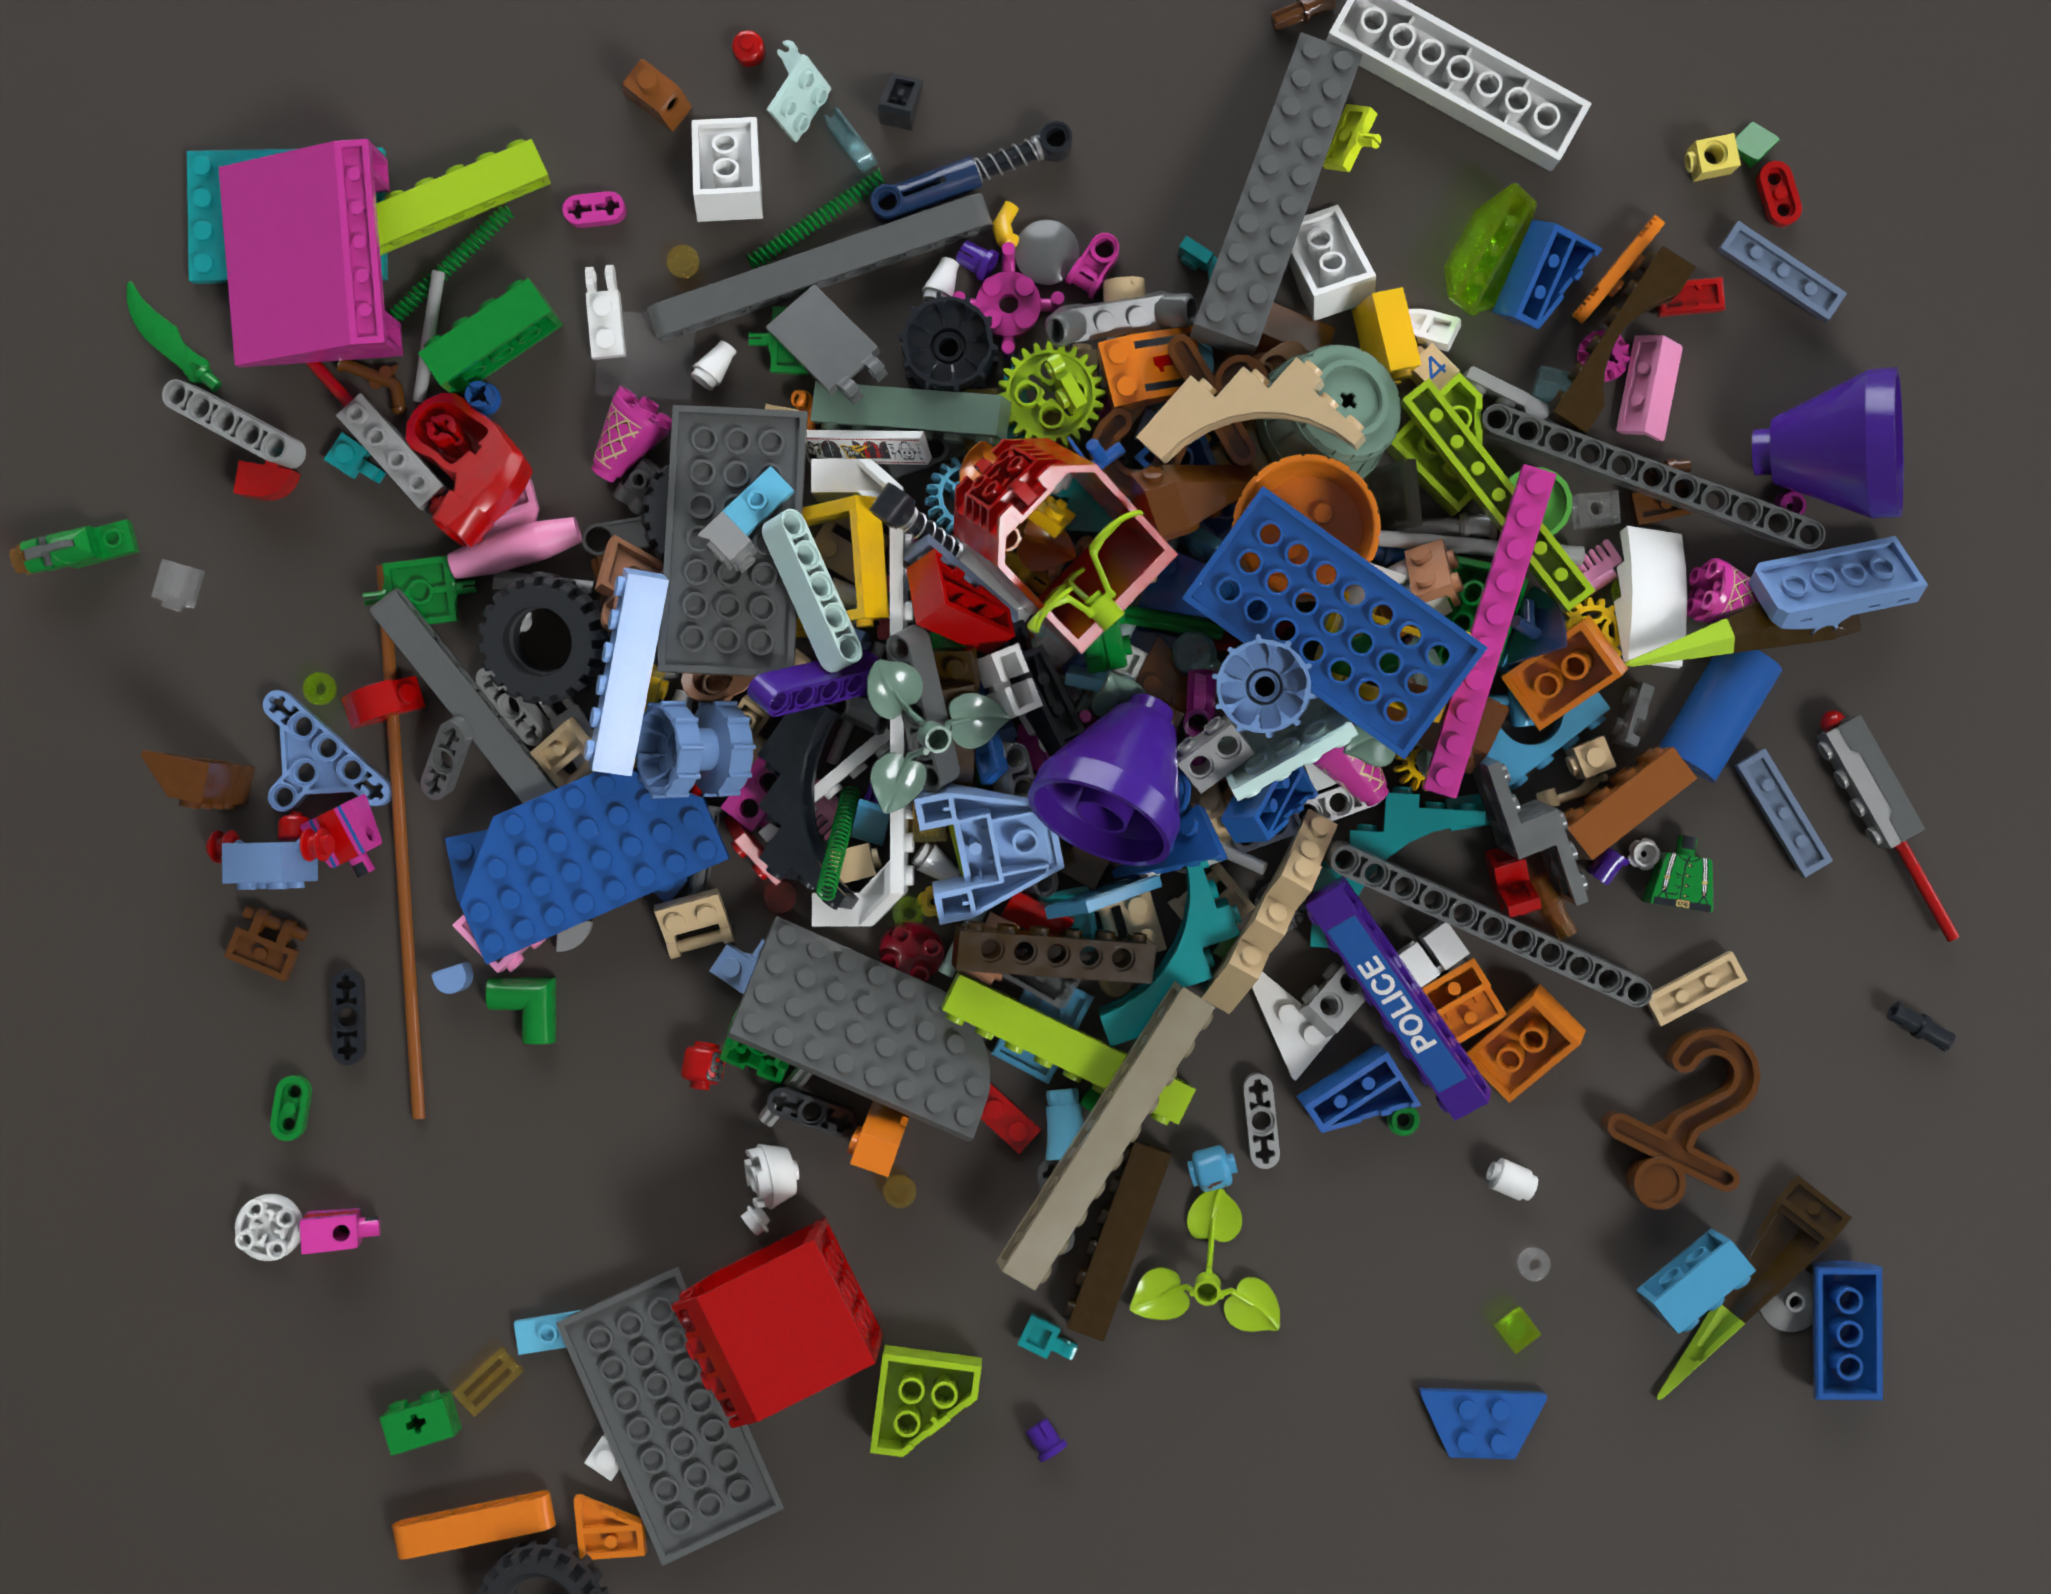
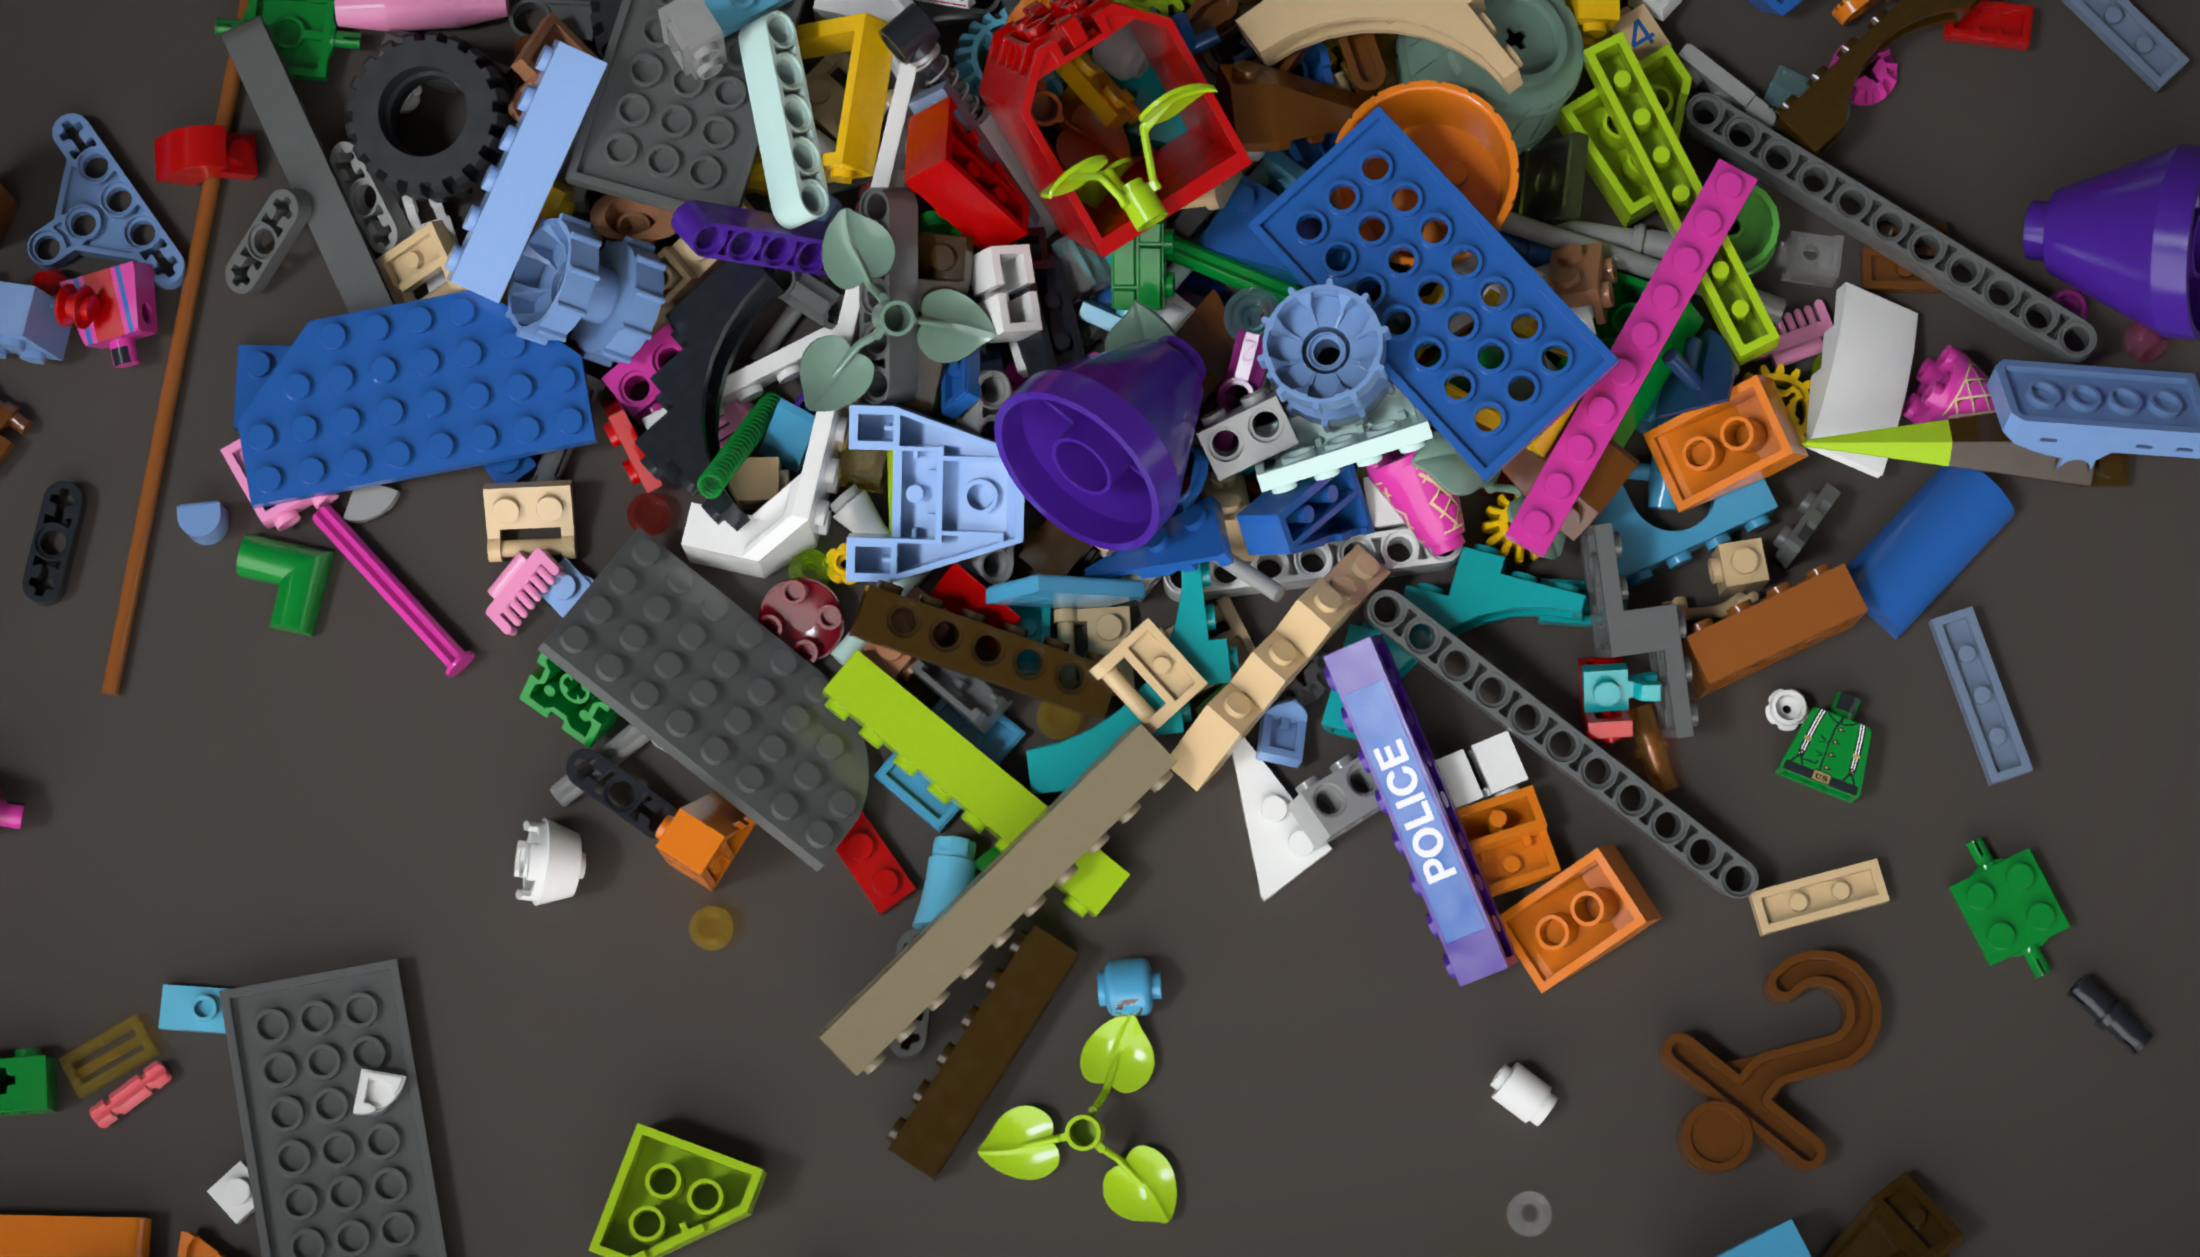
camera: 15 degrees right, 10 degrees down
(311, 683) = (120, 117): clear neon green plate -> none
(510, 1405) = (130, 1094): none -> coral axle
(605, 995) = (393, 591): none -> dark pink axle
(685, 1370) = (377, 1091): none -> white tile
(695, 970) = (517, 580): none -> bright pink piece
(702, 1065) = (495, 704): red head -> none
(756, 1220) = (514, 921): white plate -> none
(779, 1325) = (509, 1043): red container -> none
(1042, 1336) = (854, 1162): teal plate -> none
(1184, 937) = (1159, 666): none -> tan plate
(1272, 1144) = (1223, 911): light grey beam -> none
(1284, 960) = (1282, 733): none -> medium blue plate
(1358, 1091) = (1345, 927): blue wedge -> none
(1406, 1129) = (1403, 971): green plate -> none
(1517, 874) = (1610, 687): none -> teal plate
(1607, 865) = (1734, 710): dark purple bush -> none
(1649, 386) = (1914, 122): bright pink panel -> none
(1833, 963) = (2009, 907): none -> green plate
(1850, 520) = (2143, 343): none -> clear pink plate
(1877, 798) = (2108, 704): piece -> none

